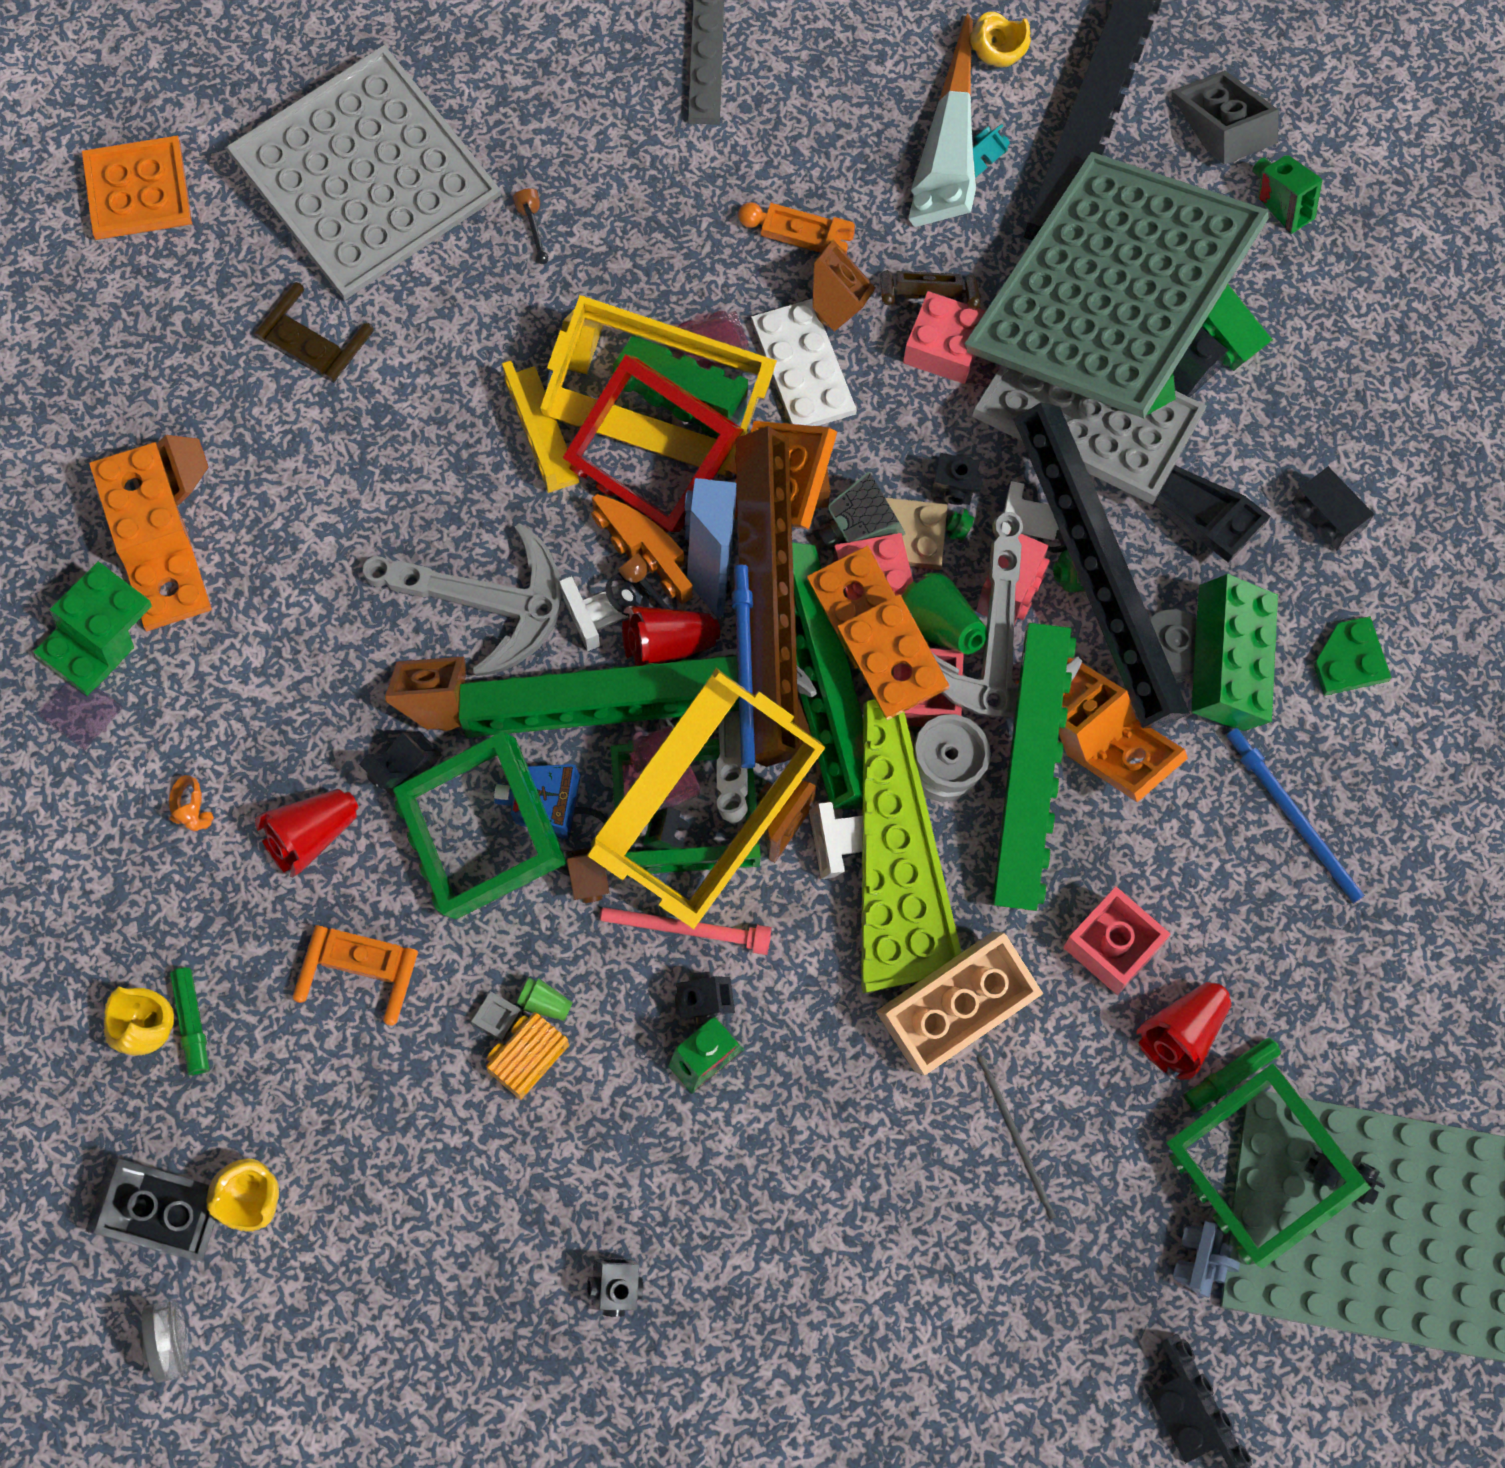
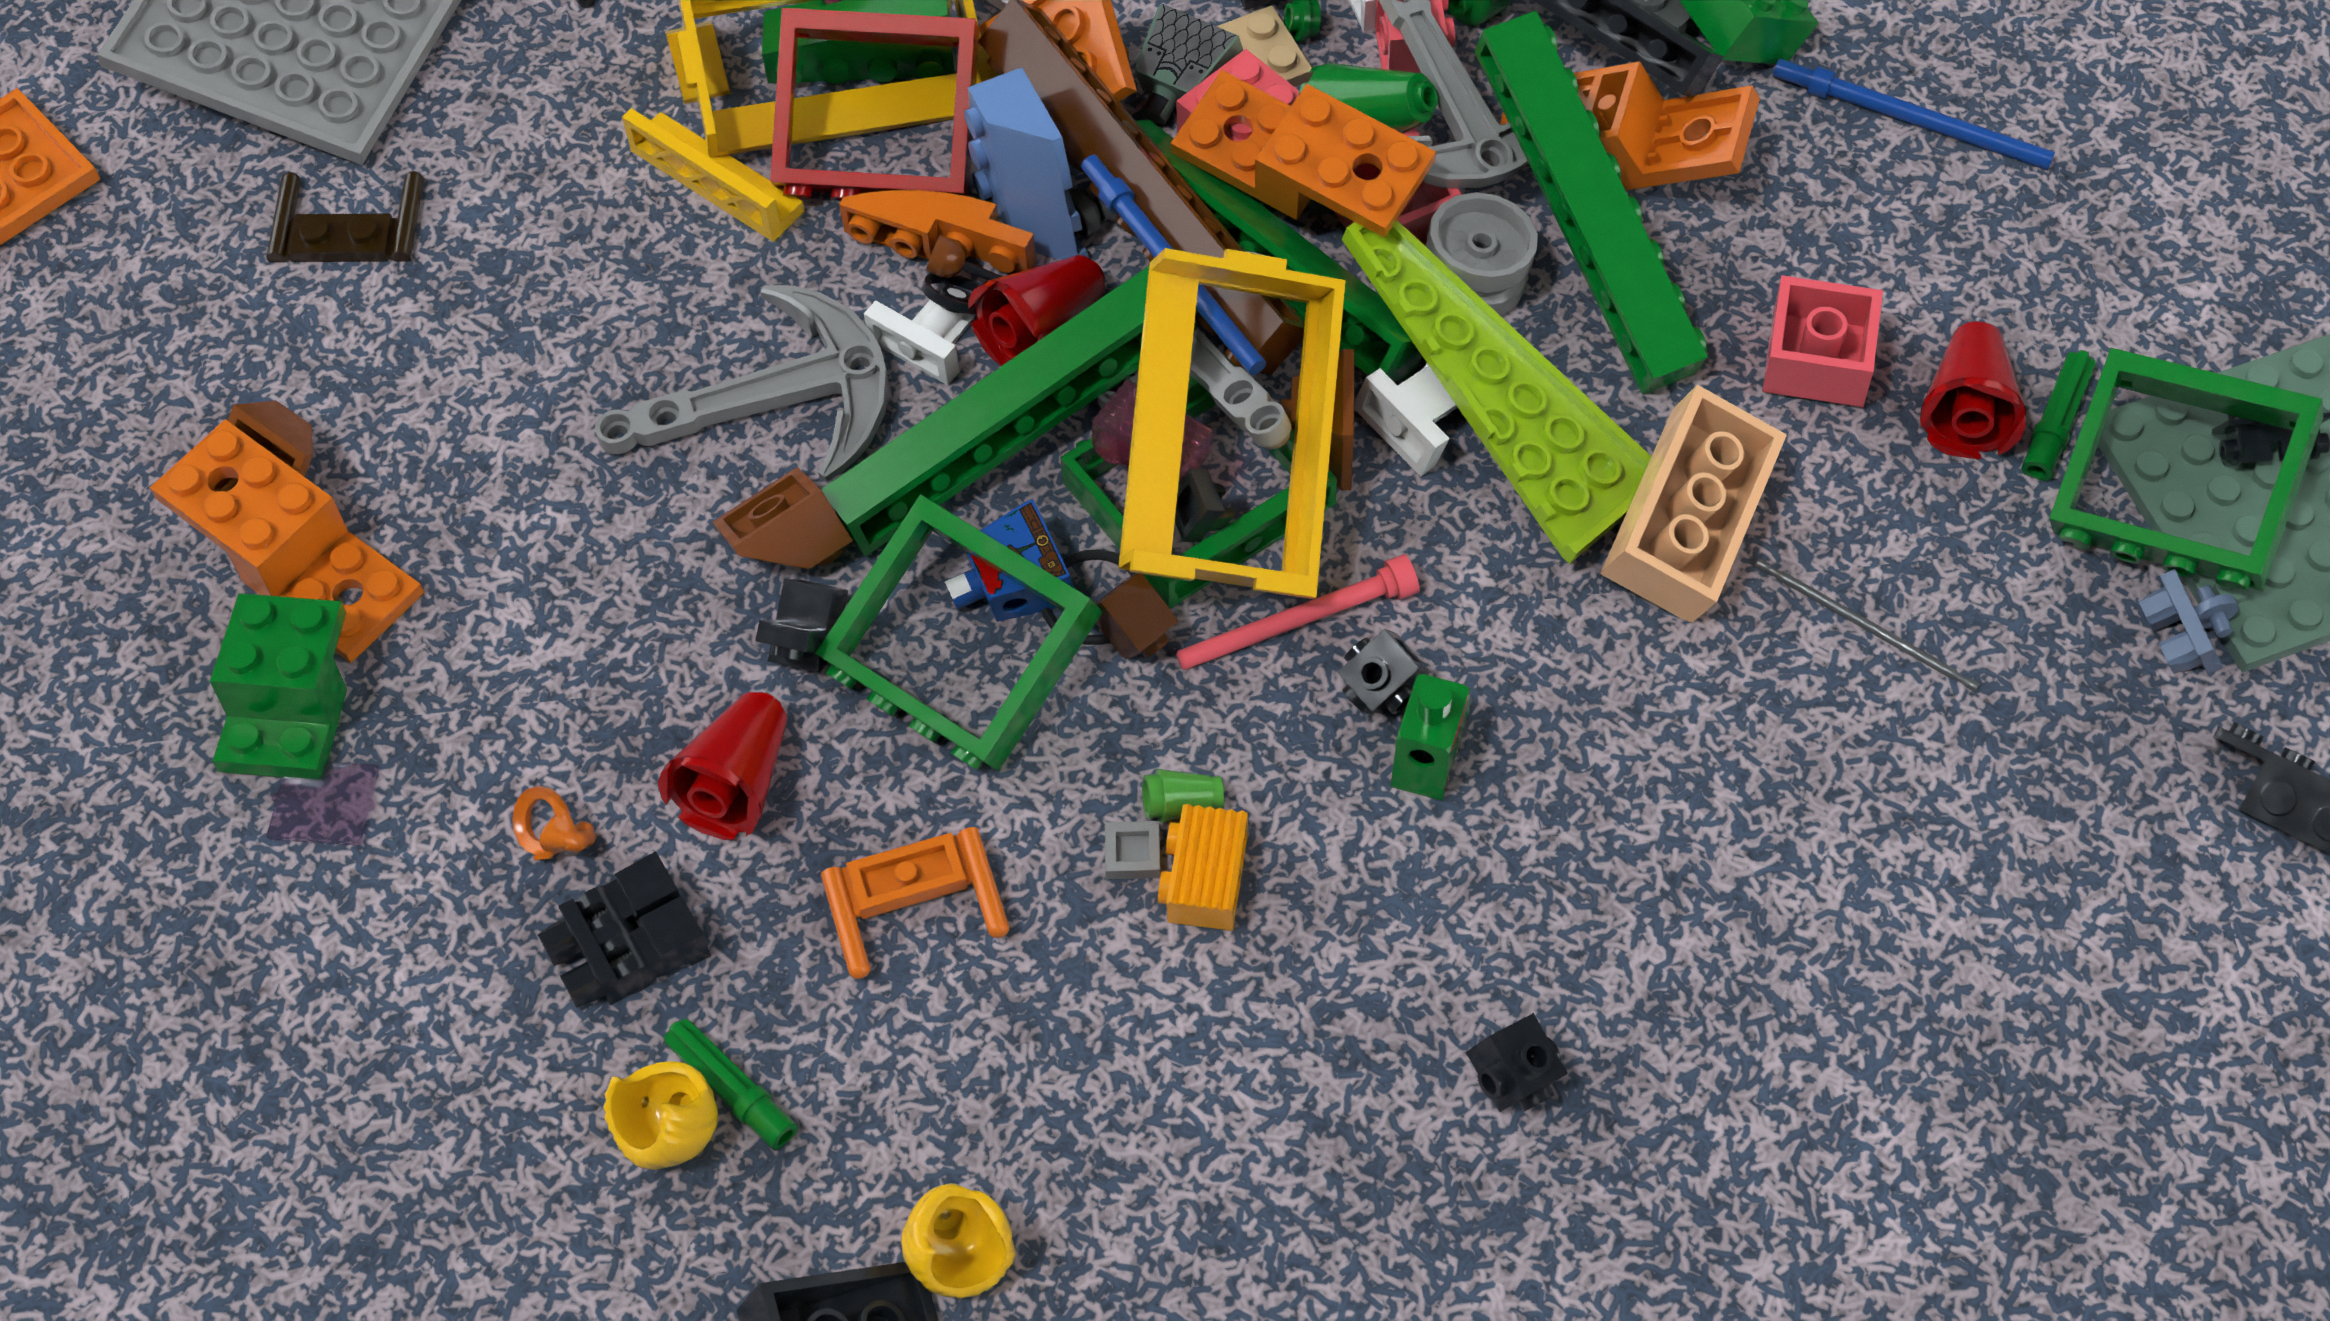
camera: 25 degrees left, 10 degrees down
(197, 898) = (605, 932): none -> black hips

